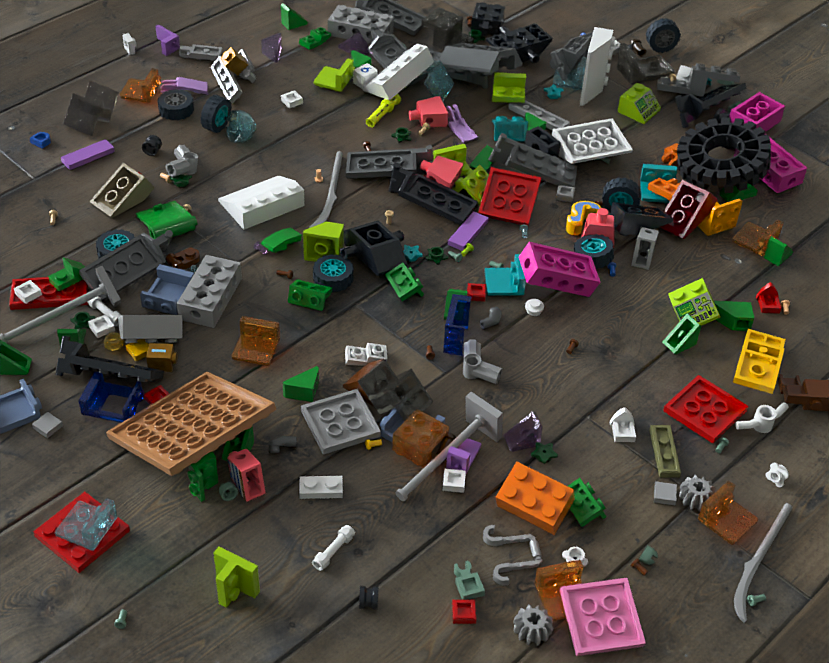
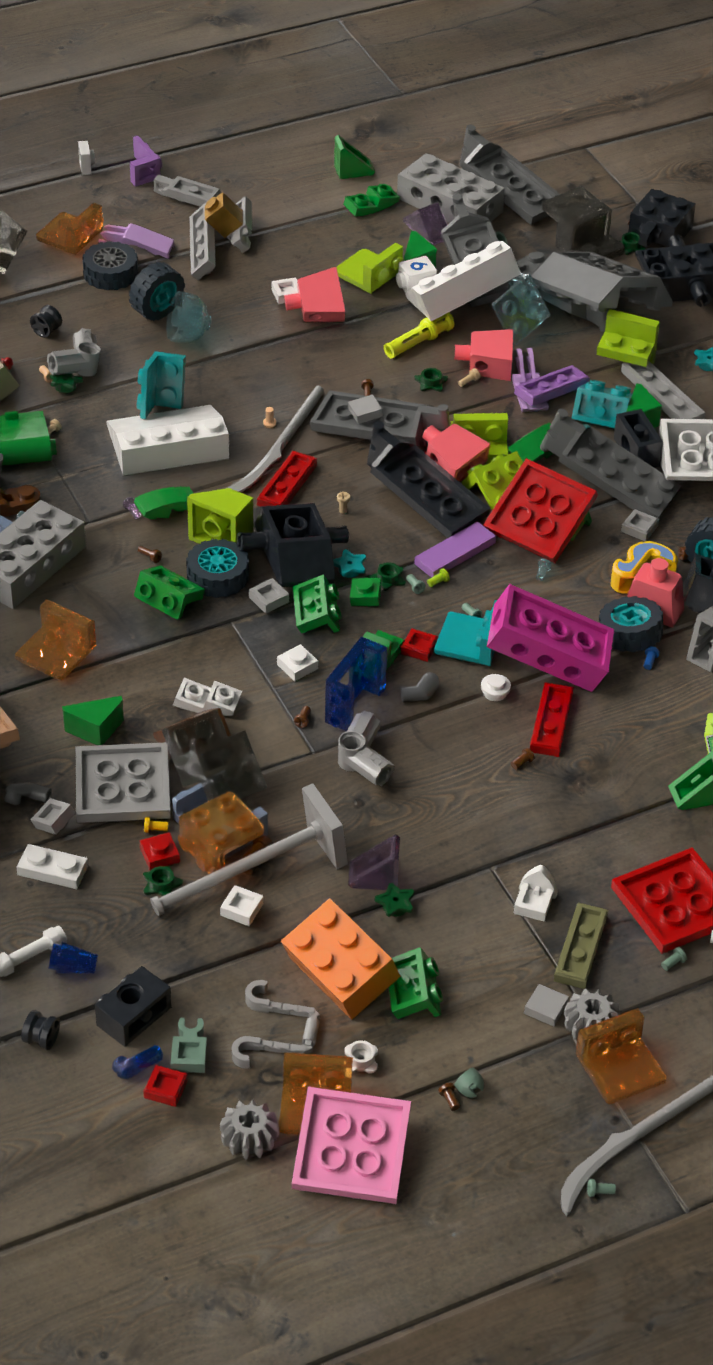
camera: 20 degrees right, 0 degrees up
(247, 166) = (161, 382): none -> teal bracket
(272, 46) = (298, 201): clear purple slope -> none
(307, 454) = (53, 816): none -> light grey plate
(315, 99) = (318, 297): none -> coral torso
(348, 210) = (287, 480): none -> red tile
(363, 545) = (71, 959): none -> clear blue cone
(373, 283) = (269, 595): none -> light grey plate
(377, 158) = (365, 409): none -> light grey tile
(384, 459) = (159, 851): none -> red plate
(394, 473) = (161, 874): none -> dark green plate
(409, 320) = (297, 662): none -> white plate
(427, 556) = (133, 1005): none -> black brick
(429, 267) = (365, 591): none -> green plate
(442, 600) = (130, 1067): none -> clear blue arm
(463, 456) = (272, 876): medium lavender bracket -> none
(474, 124) = (551, 385): none -> medium lavender tile
(576, 318) = (551, 719): none -> red tile

